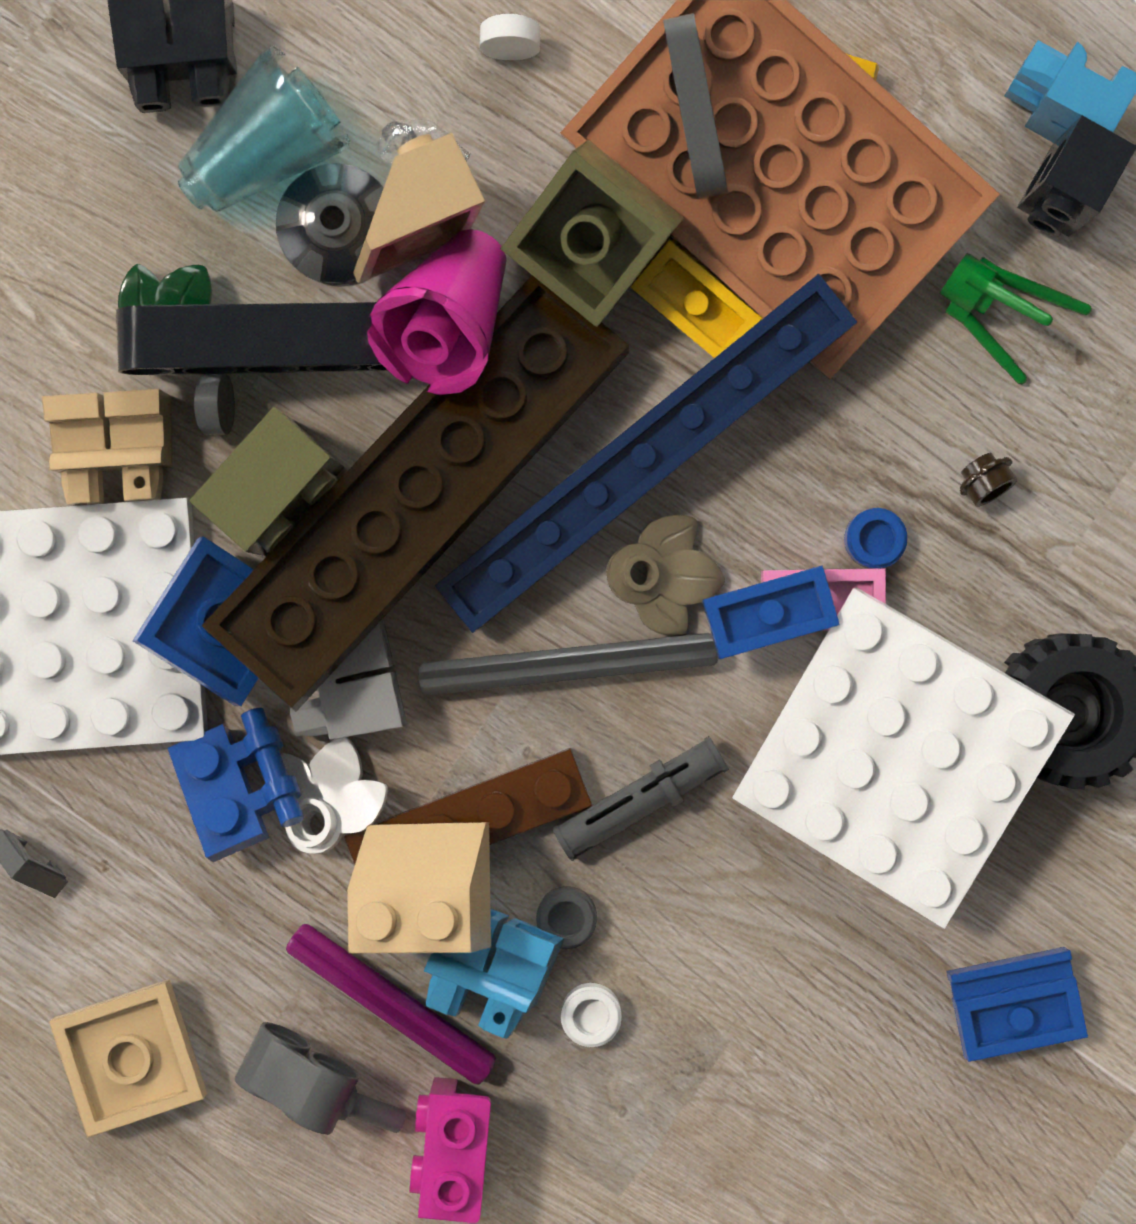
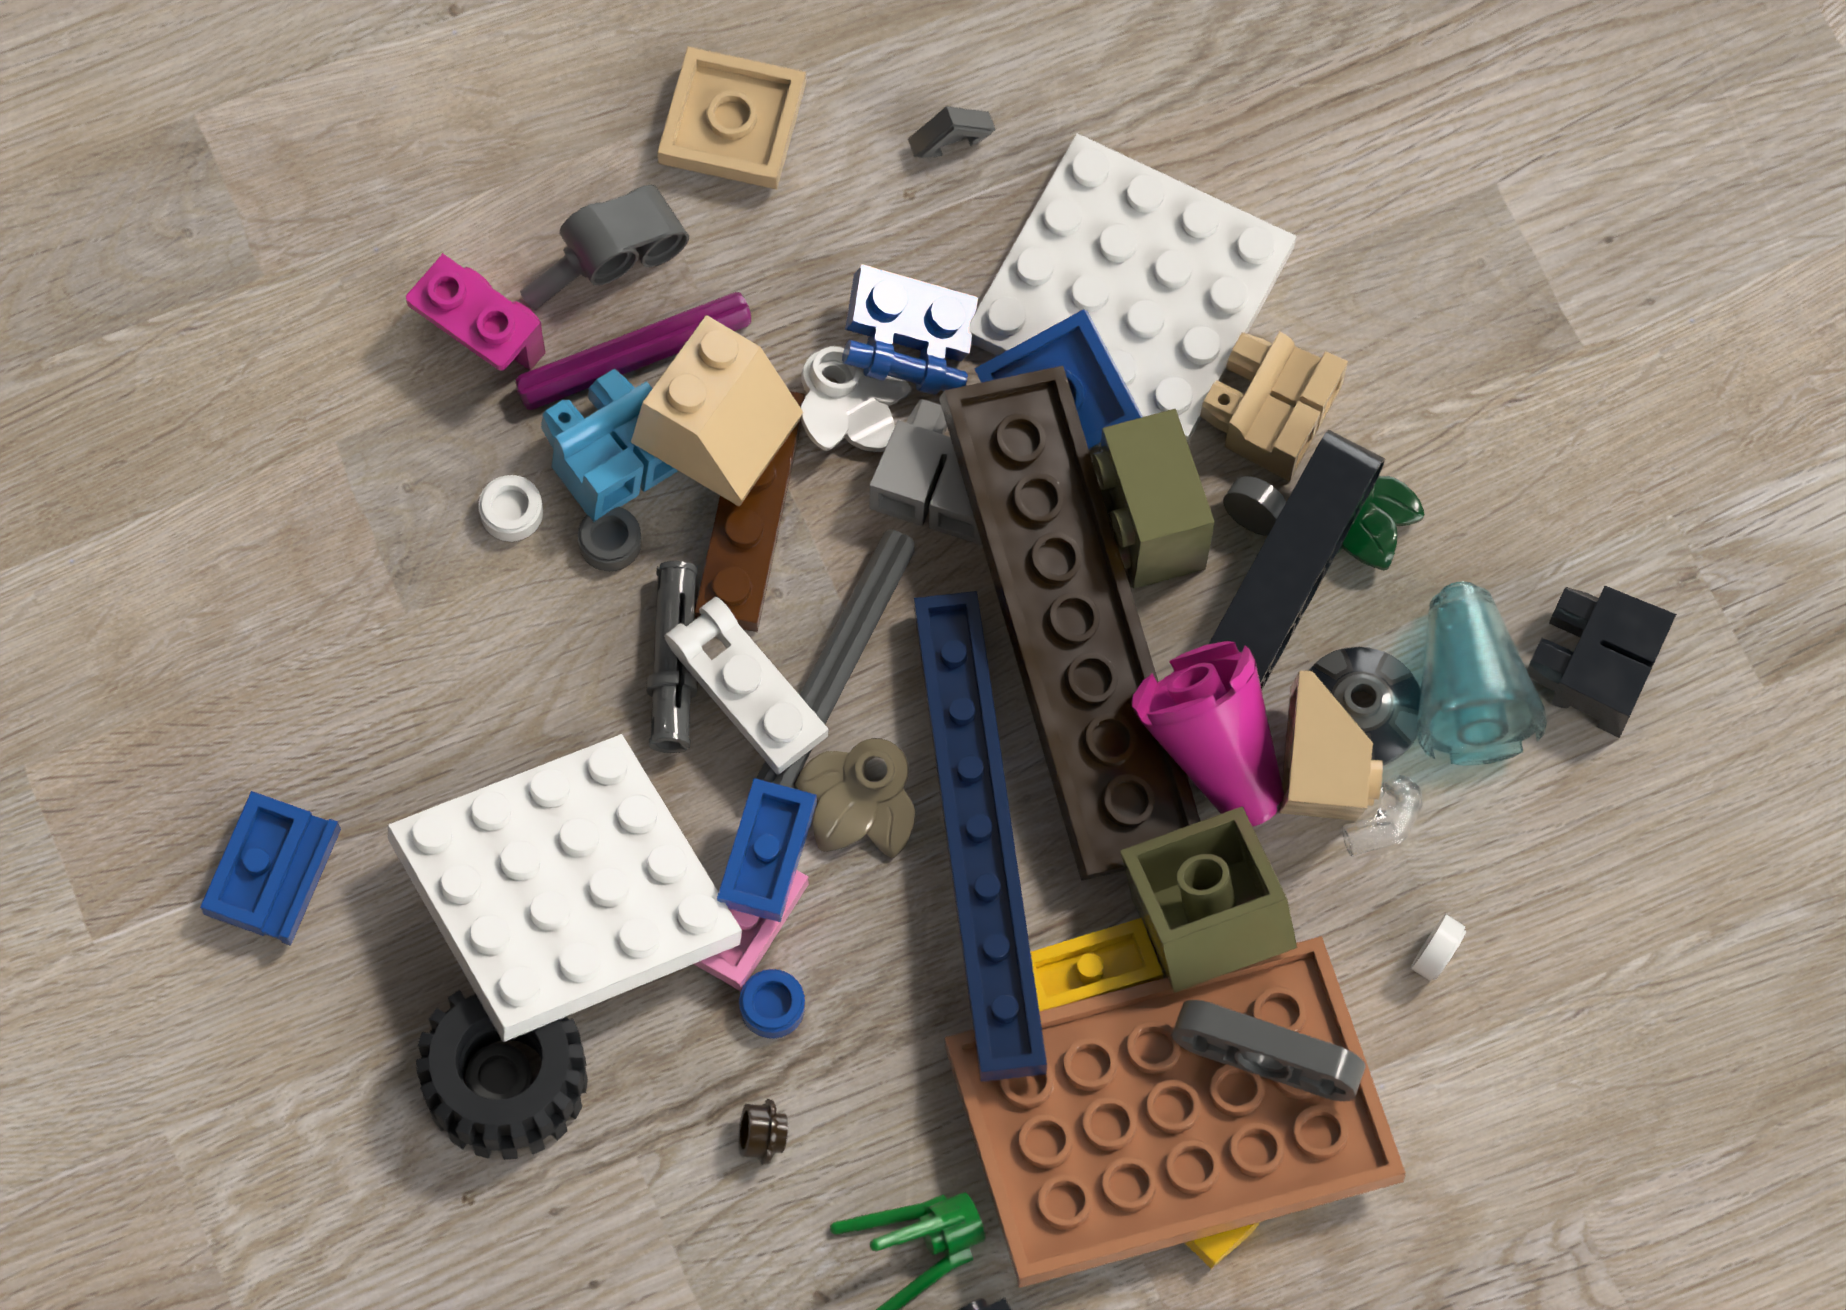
camera: 115 degrees right, 20 degrees down
(638, 717) = (747, 687): none -> white plate

